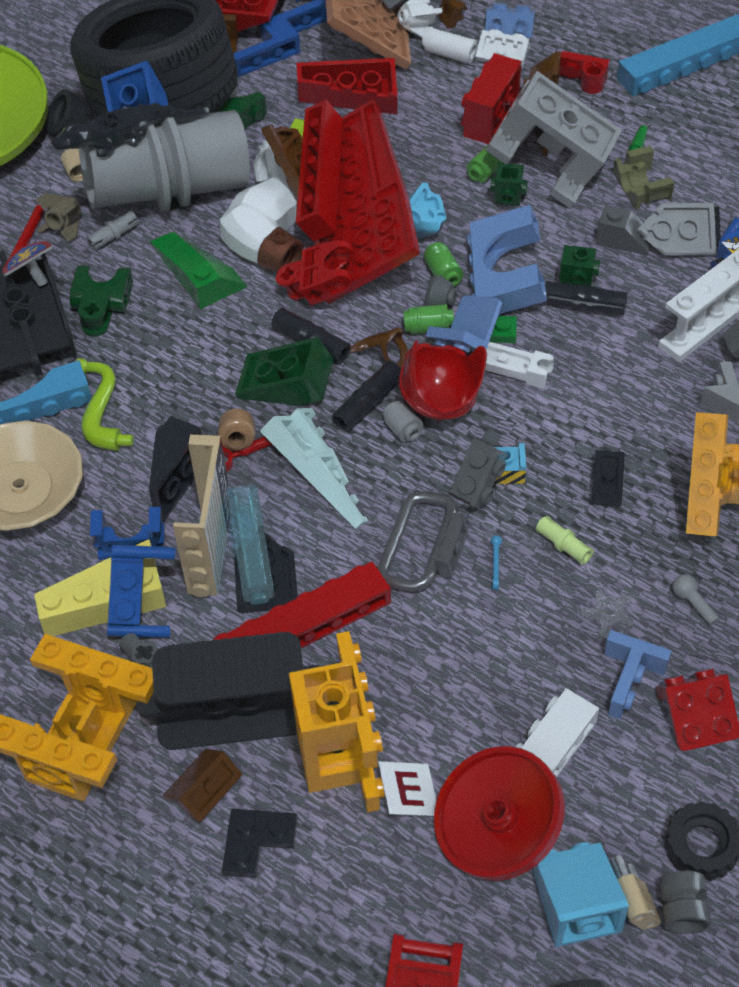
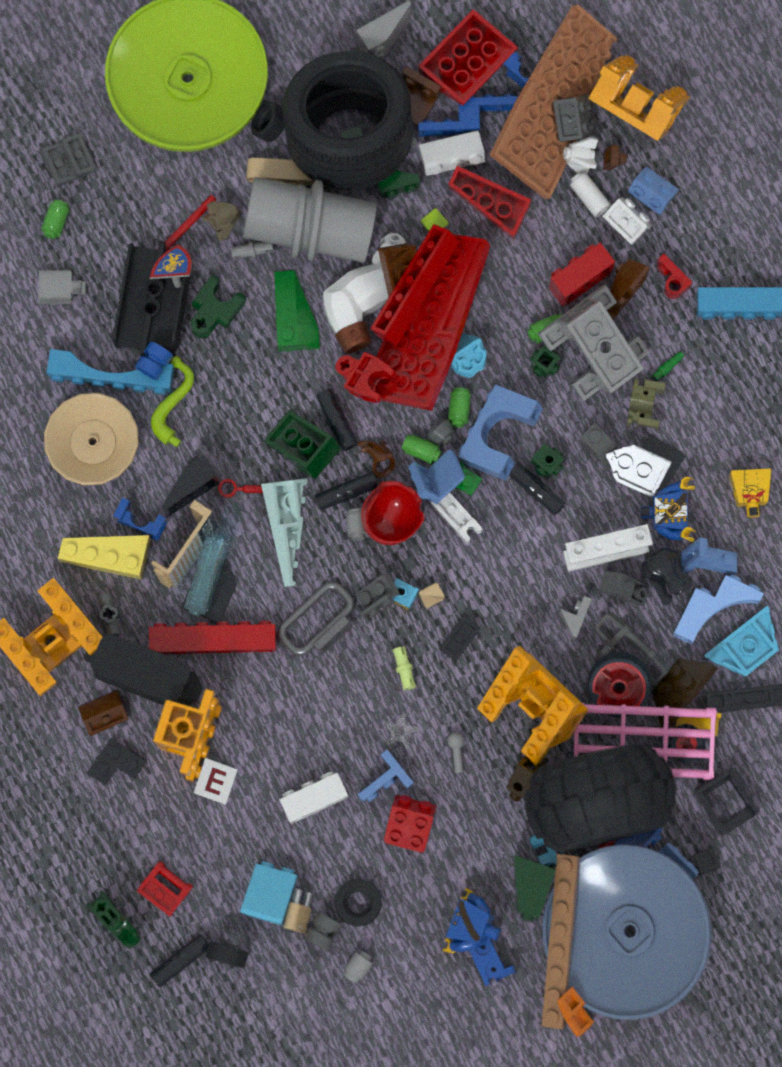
camera: 30 degrees right, 25 degrees up
(53, 357) = (153, 361): none -> blue wheel
(121, 126) = (279, 202): black animal -> none
(126, 590) = (116, 568): blue plate -> none
(133, 87) = (306, 170): blue slope -> none
(236, 429) = (246, 475): medium nougat head -> none
(280, 67) = (452, 152): none -> white brick
(496, 541) = (364, 644): dark azure hinge -> none
(499, 813) = (252, 827): red dish -> none
(542, 449) = (431, 595): none -> tan slope

